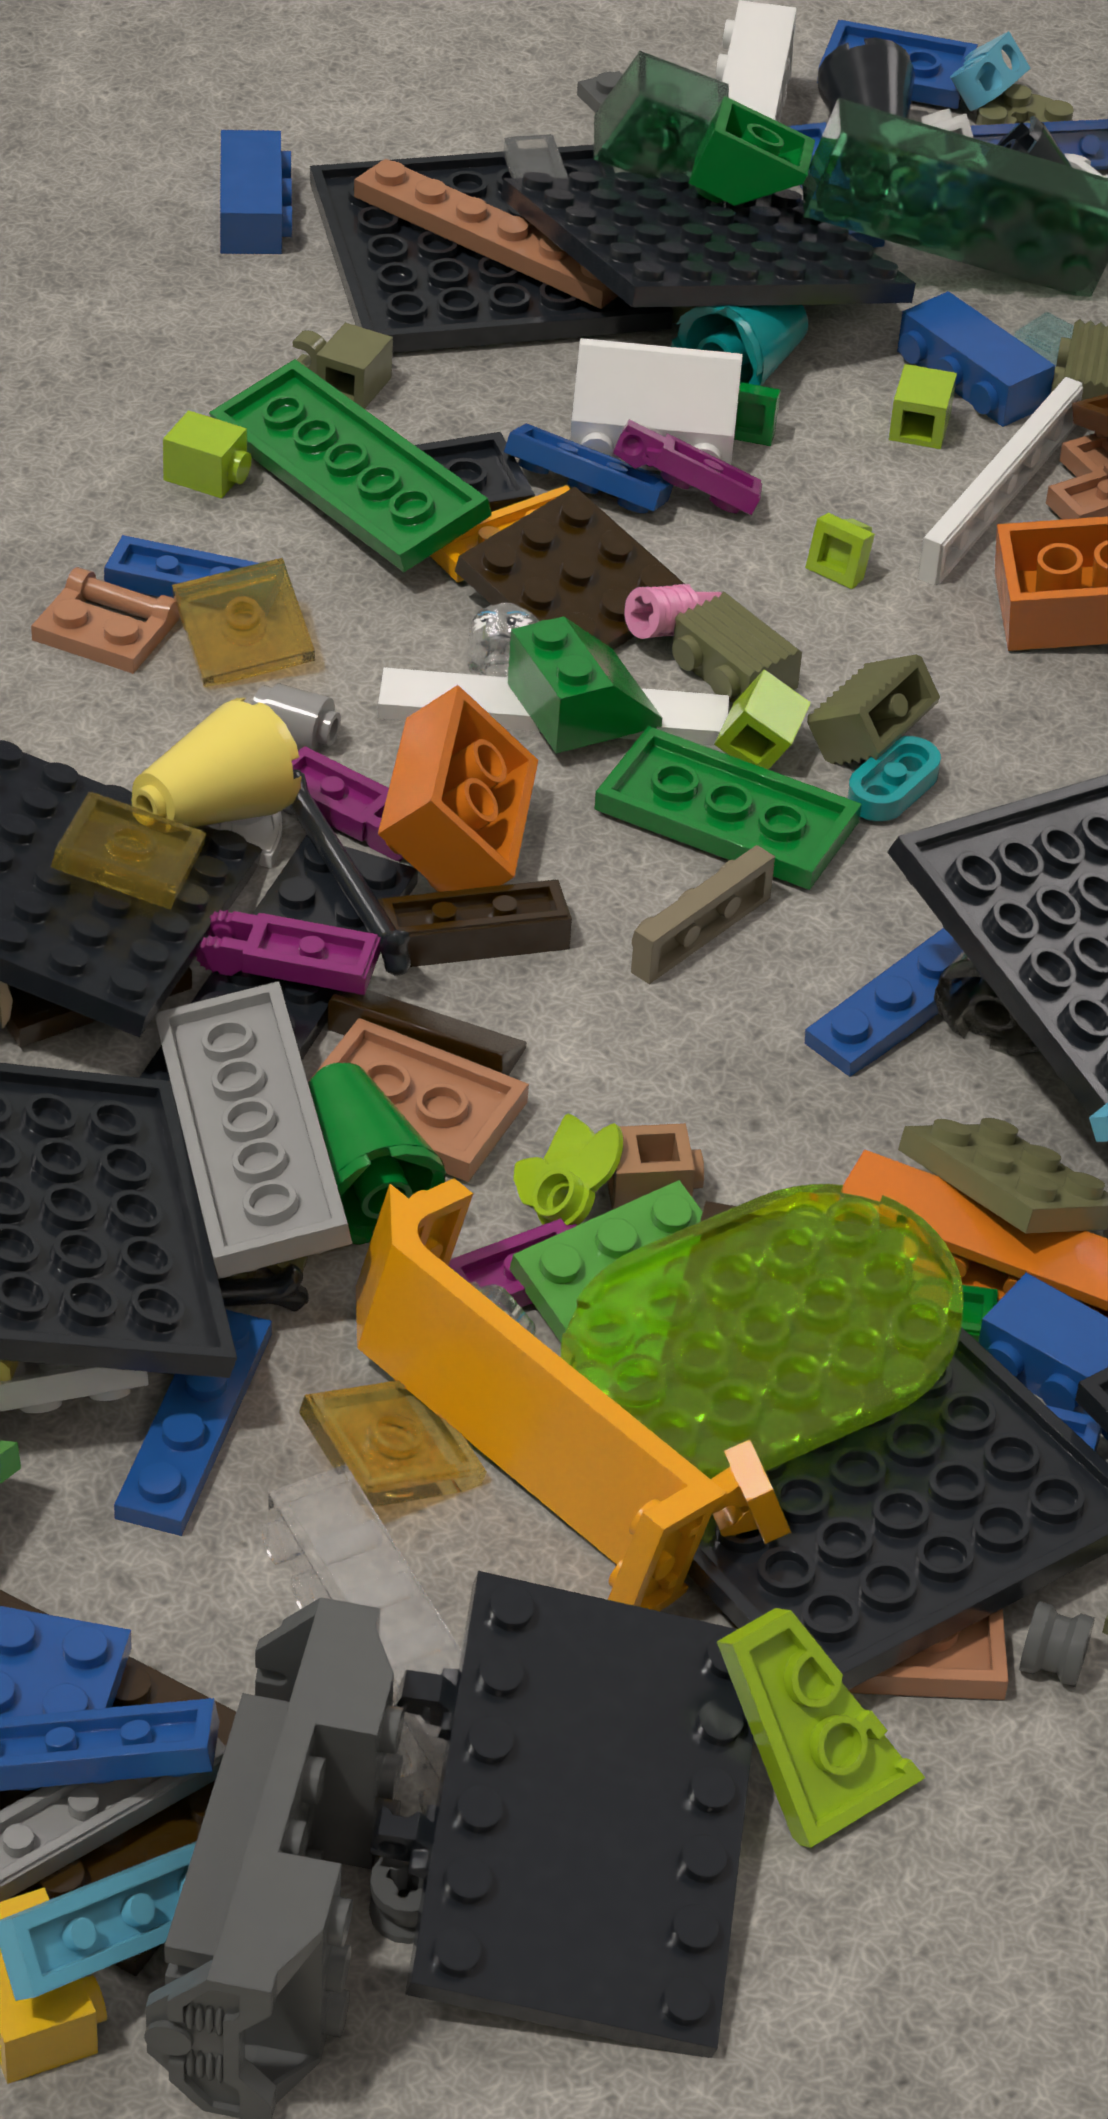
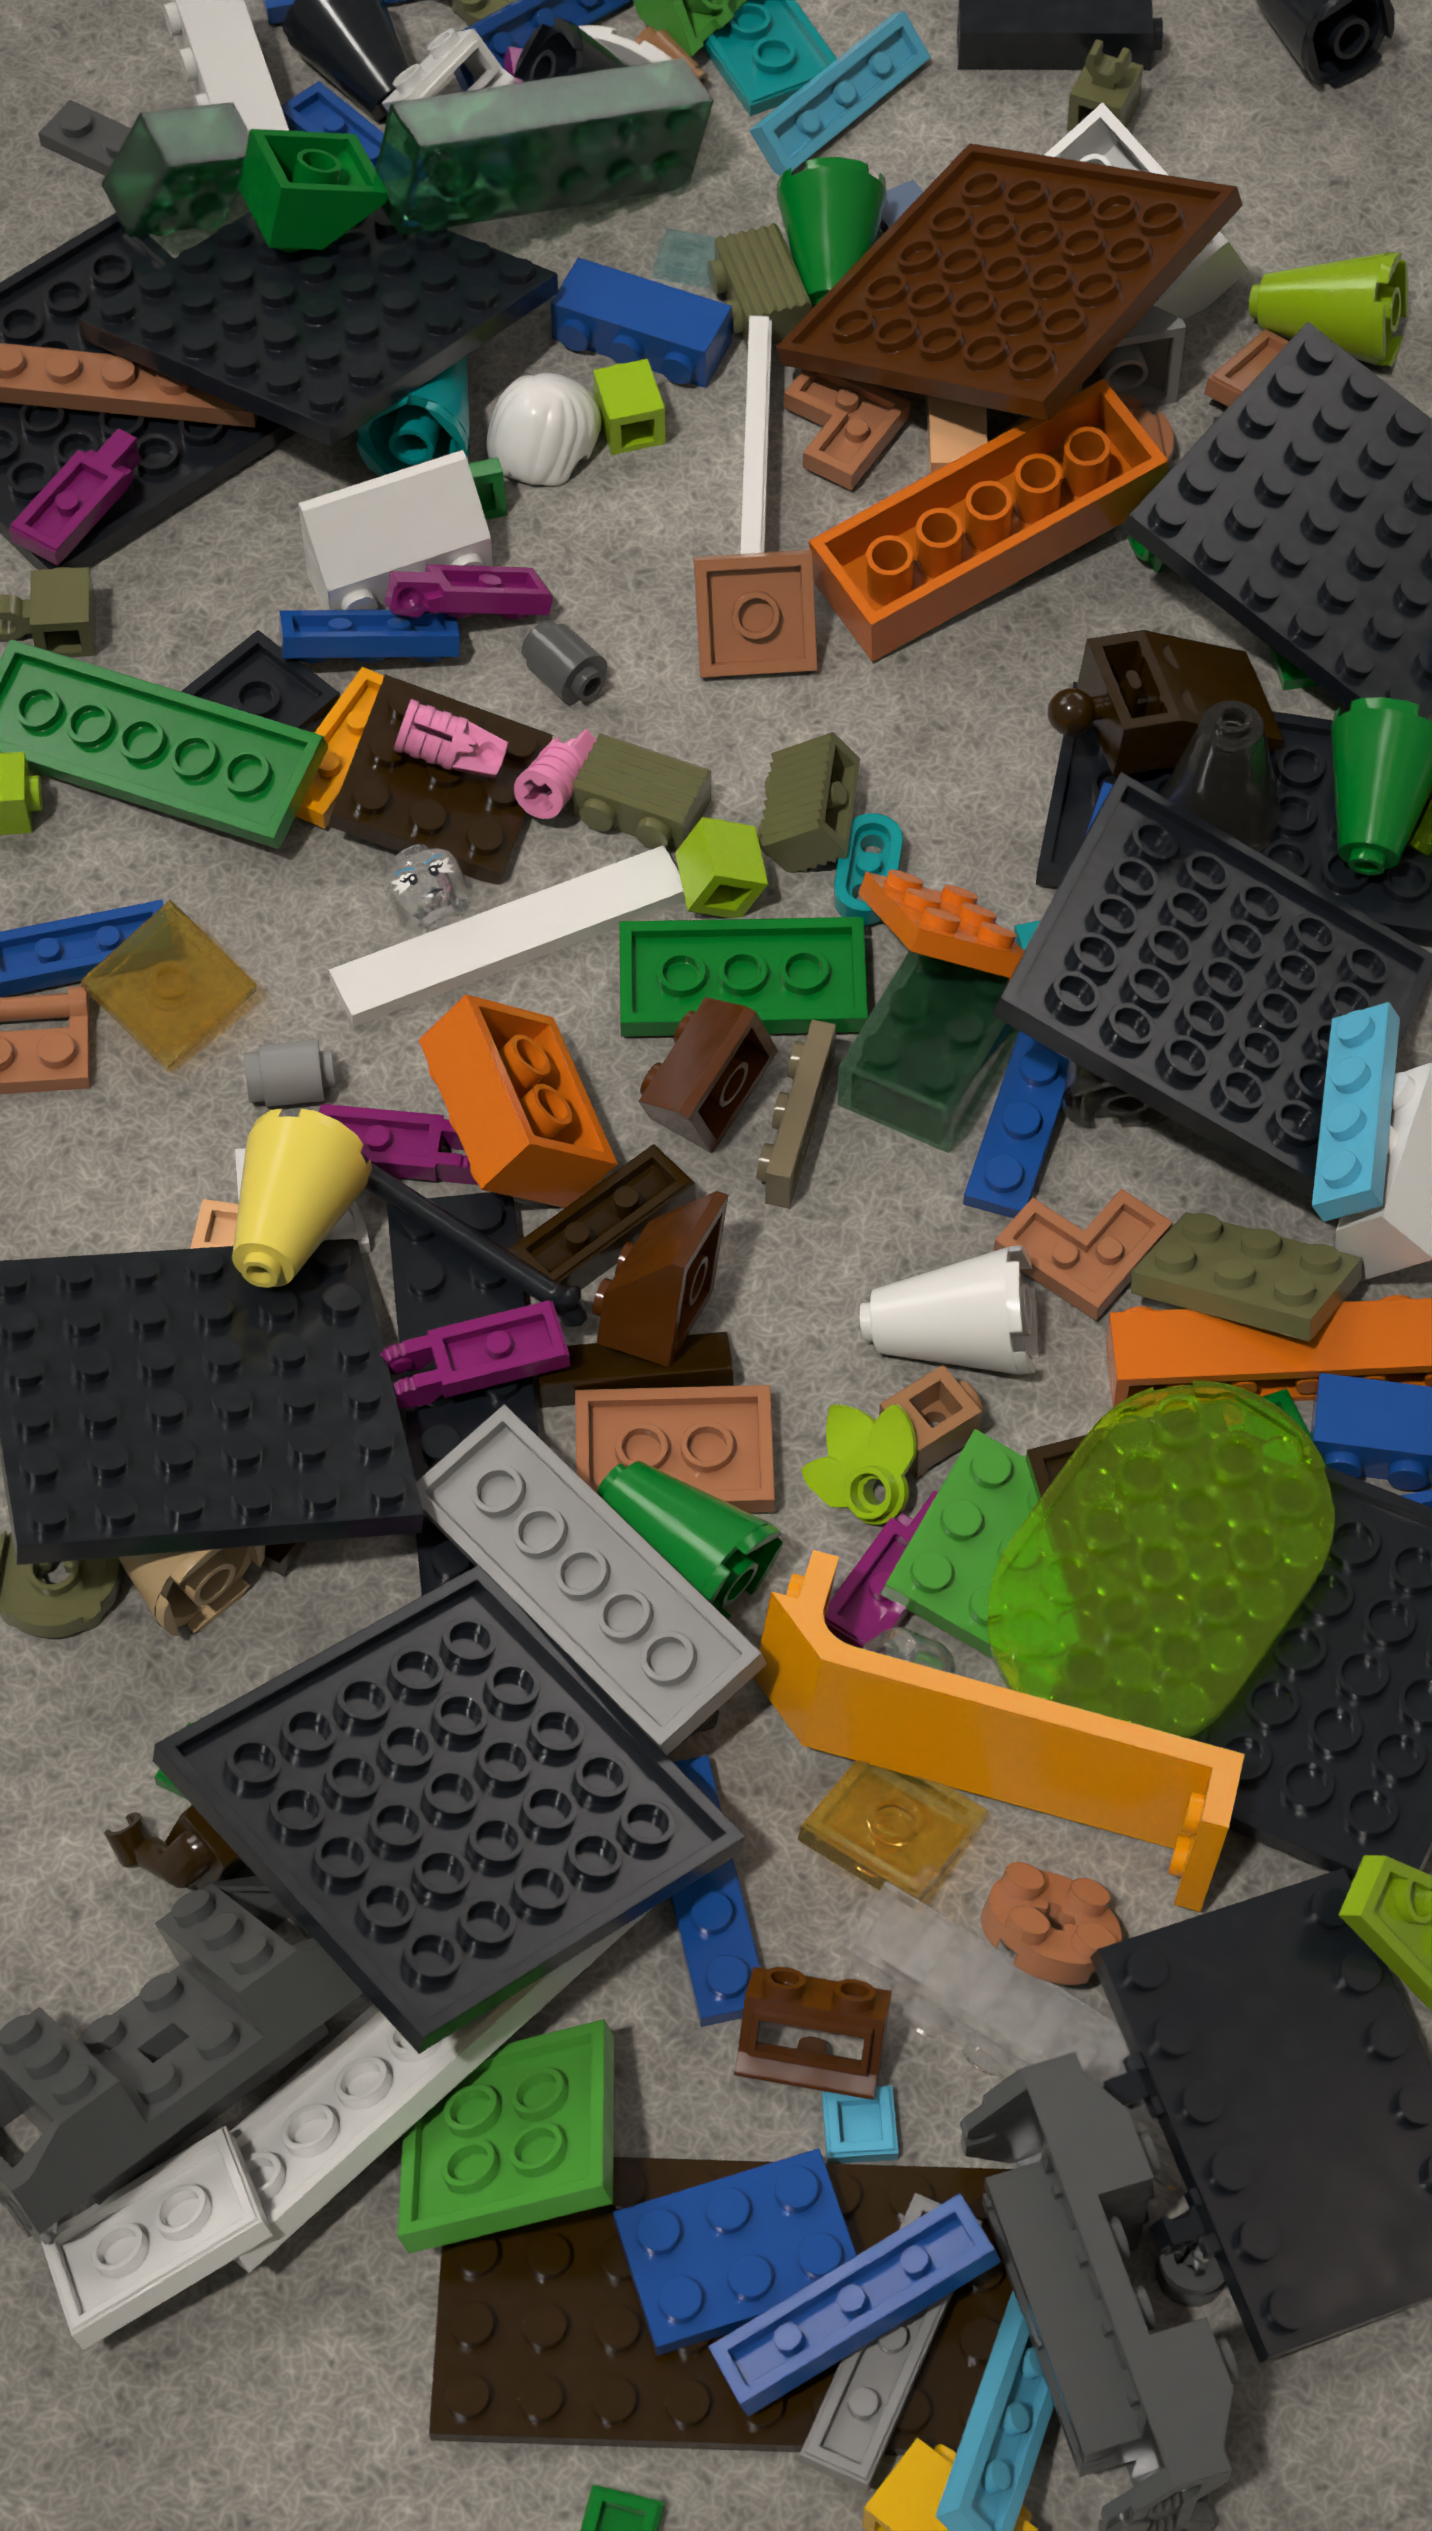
camera: 25 degrees left, 15 degrees up
(129, 850) = (281, 1334): clear yellow plate -> none
(194, 1650) = (860, 2127): none -> medium azure tile
(231, 1531) = (818, 2004): none -> reddish brown window
(419, 292) = (76, 498): none -> magenta hinge
(452, 1551) = (1030, 1902): none -> nougat plate
(488, 968) = (662, 1281): none -> reddish brown slope
(533, 154) = (77, 271): clear tile -> none
(575, 686) = (532, 913): green slope -> none
(588, 540) = (449, 741): none -> bright pink hinge
(642, 848) = (708, 1072): none -> reddish brown slope
(738, 546) = (564, 662): none -> dark grey brick
(738, 1102) = (960, 1314): none -> white cone
(749, 1497) = (1248, 1732): light orange tile -> none
(837, 392) = (543, 428): none -> white piece
(840, 549) = (661, 620): lime tile -> none
(840, 914) = (927, 1050): none -> clear green brick
(870, 1115) = (1090, 1264): none -> nougat plate
(899, 800) = (942, 923): none -> orange plate
(921, 566) = (755, 613): none -> nougat plate

